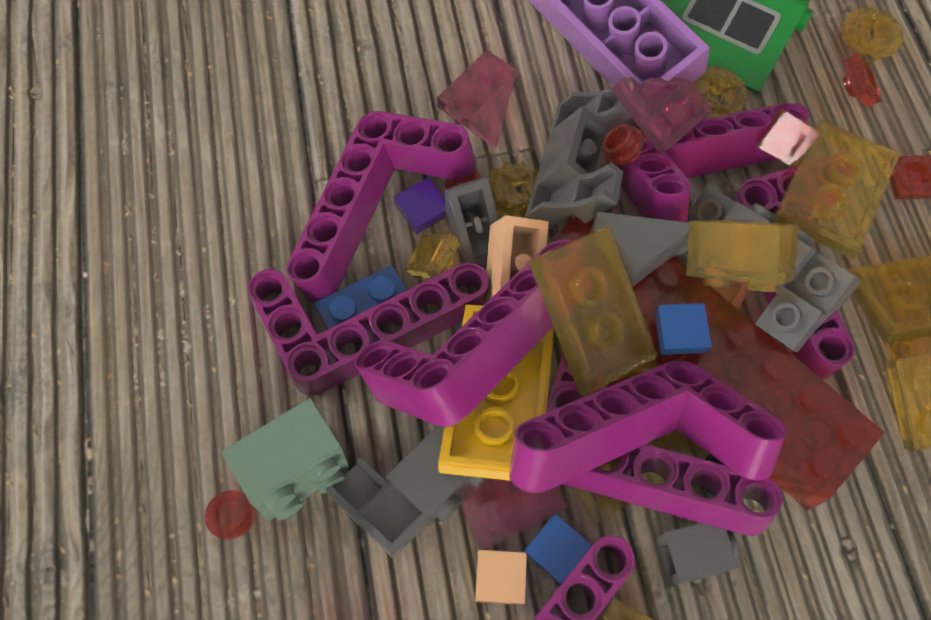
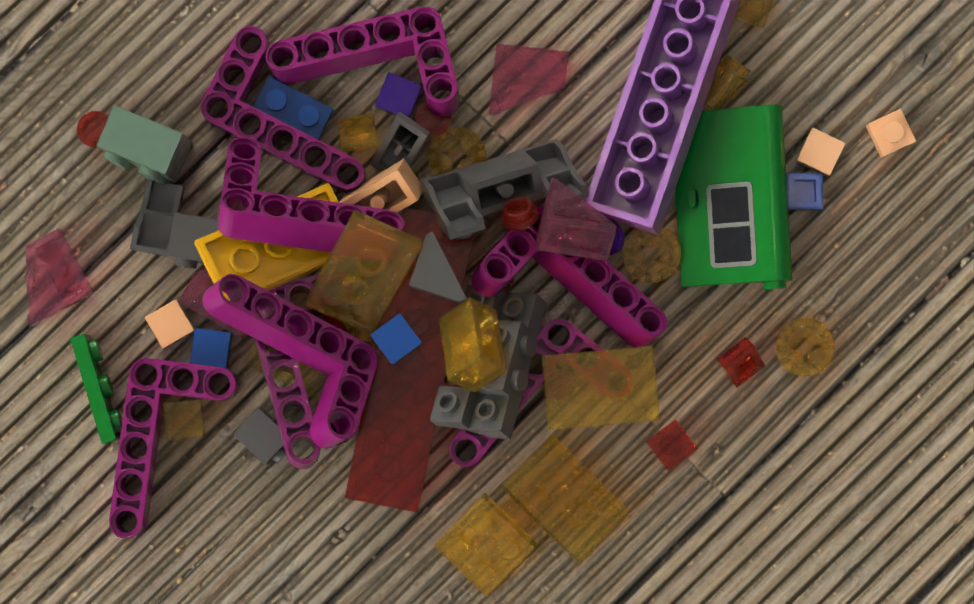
camera: 60 degrees right, 20 degrees up
(787, 138) = (614, 330): clear red plate -> none

